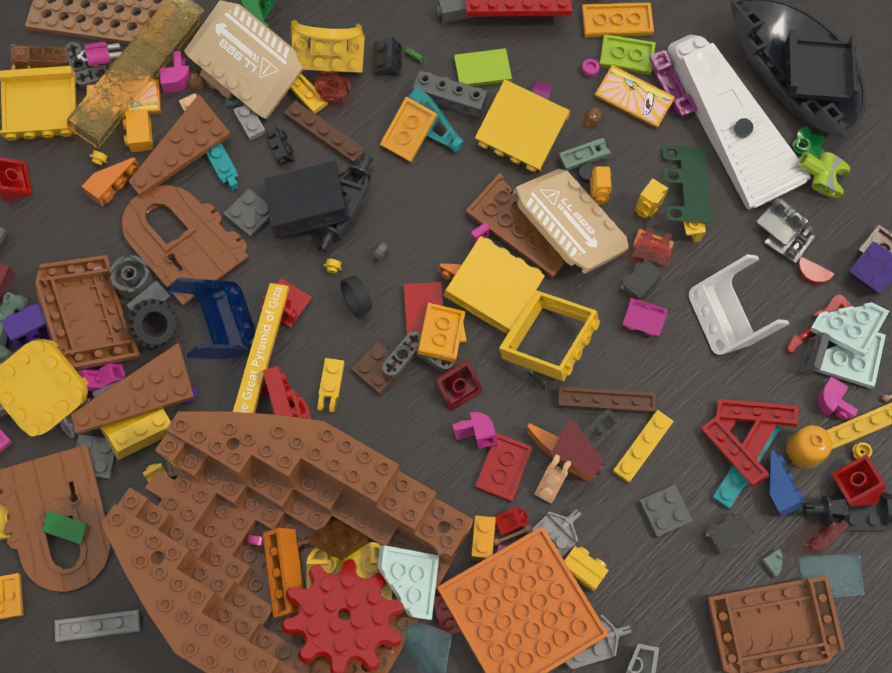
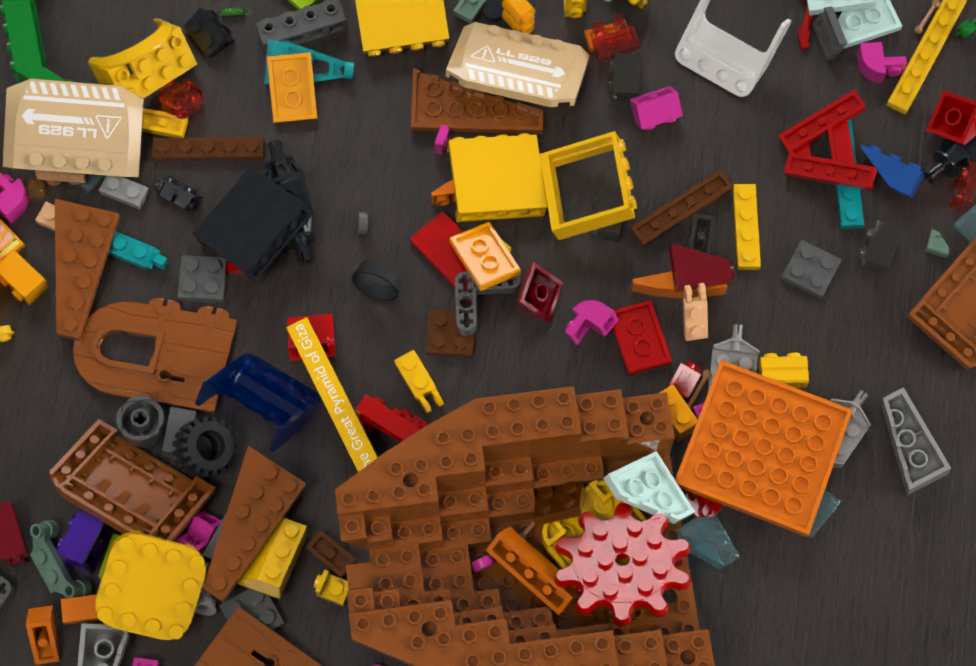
camera: 35 degrees left, 0 degrees up
(107, 182) = (32, 352): orange slope -> none
(332, 266) = (327, 270): yellow plate -> none
(809, 447) = (889, 120): light orange cylinder -> none
(864, 447) = (934, 86): yellow plate -> none

